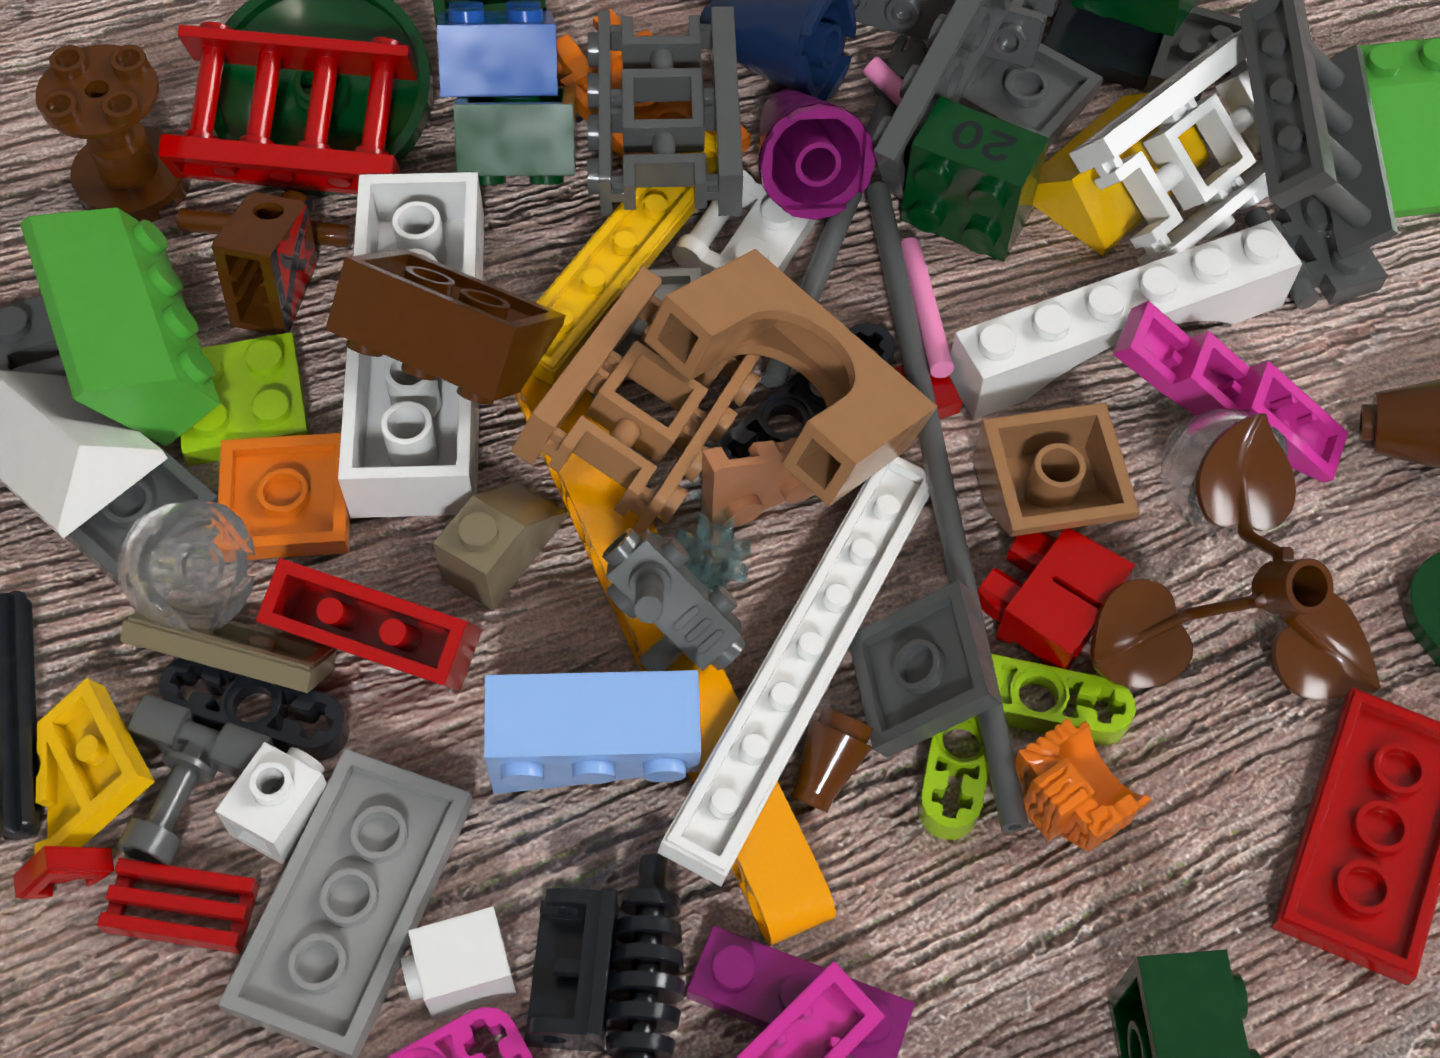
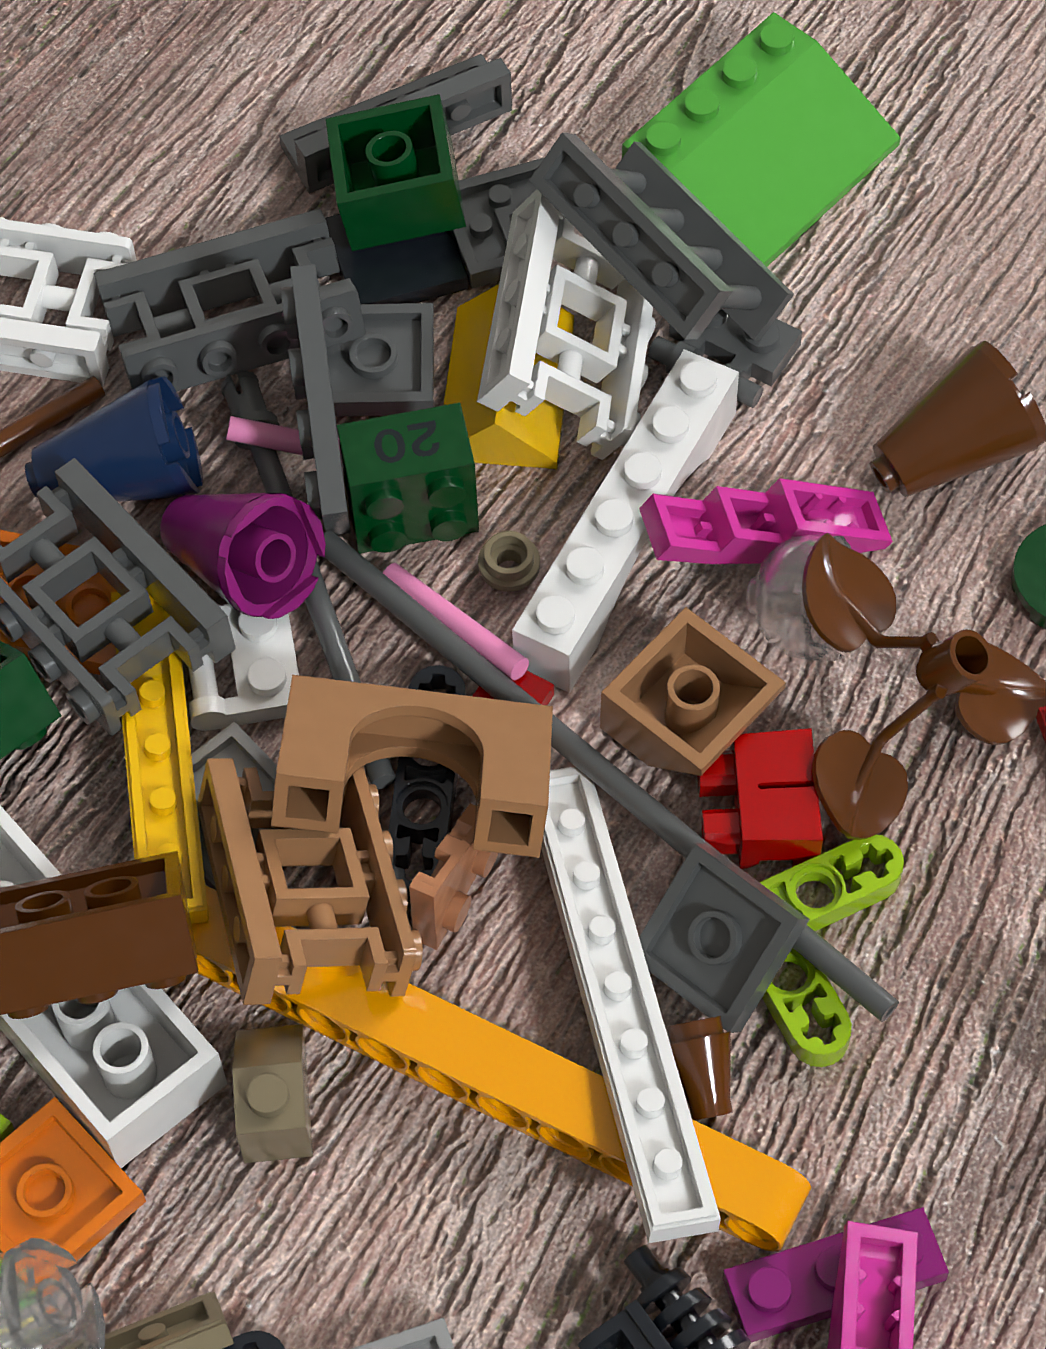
camera: 35 degrees left, 0 degrees up
(369, 624) = (238, 1245): red brick -> none
(590, 728) = (509, 1188): light blue wedge -> none
(661, 590) = (472, 1026): dark grey piece -> none
(723, 544) = (482, 979): clear light blue gear -> none
(1007, 281) = (509, 547): none -> dark tan plate
(1072, 789) = (908, 948): orange hair -> none

